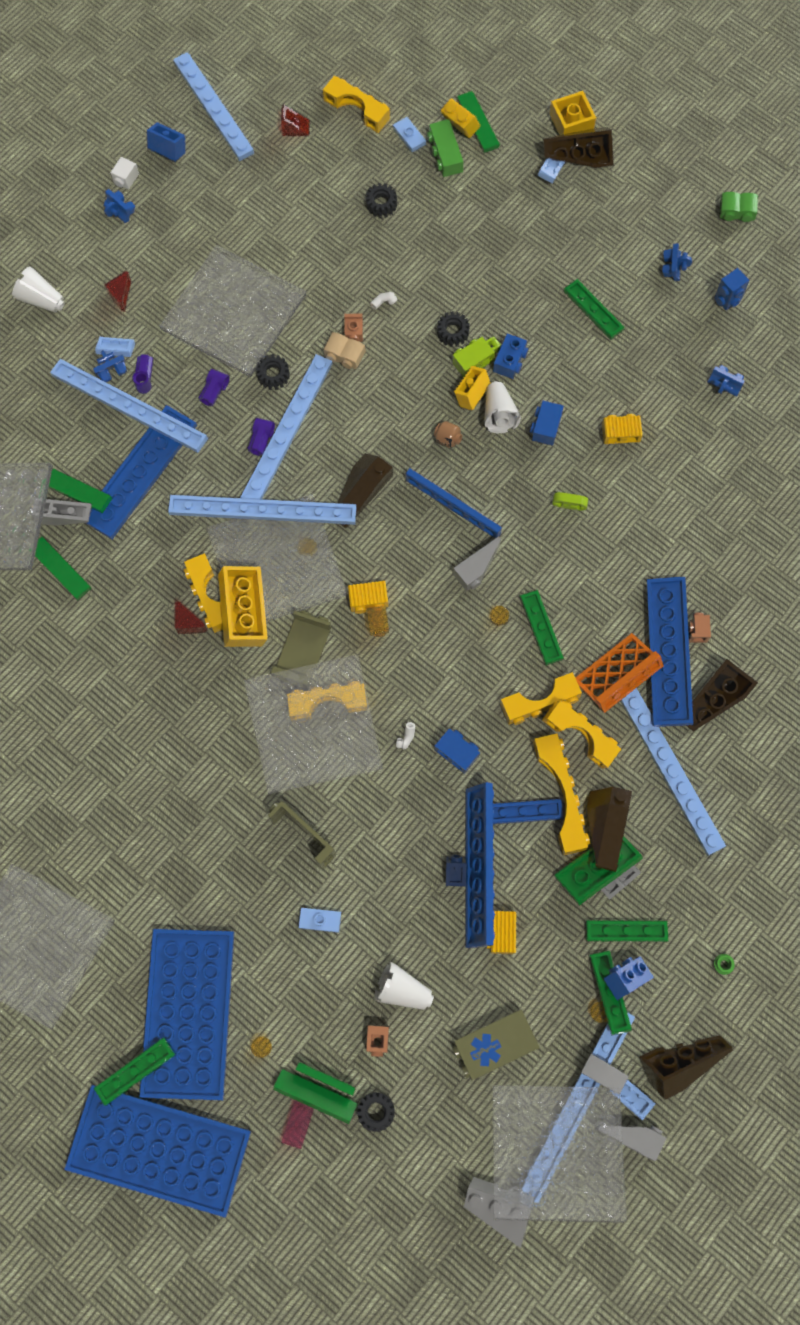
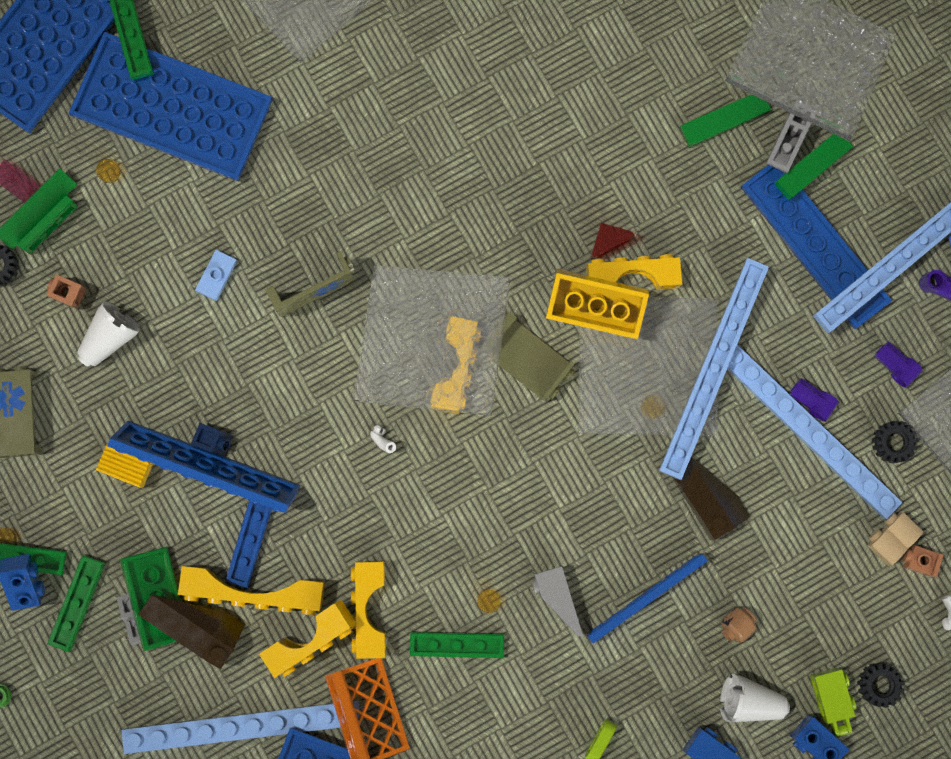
camera: 100 degrees right, 10 degrees up
(367, 596) = (564, 455): yellow brick -> none
(378, 621) = (530, 456): clear yellow brick -> none
(457, 750) = (343, 490): blue brick -> none
(472, 387) = (789, 677): yellow brick -> none

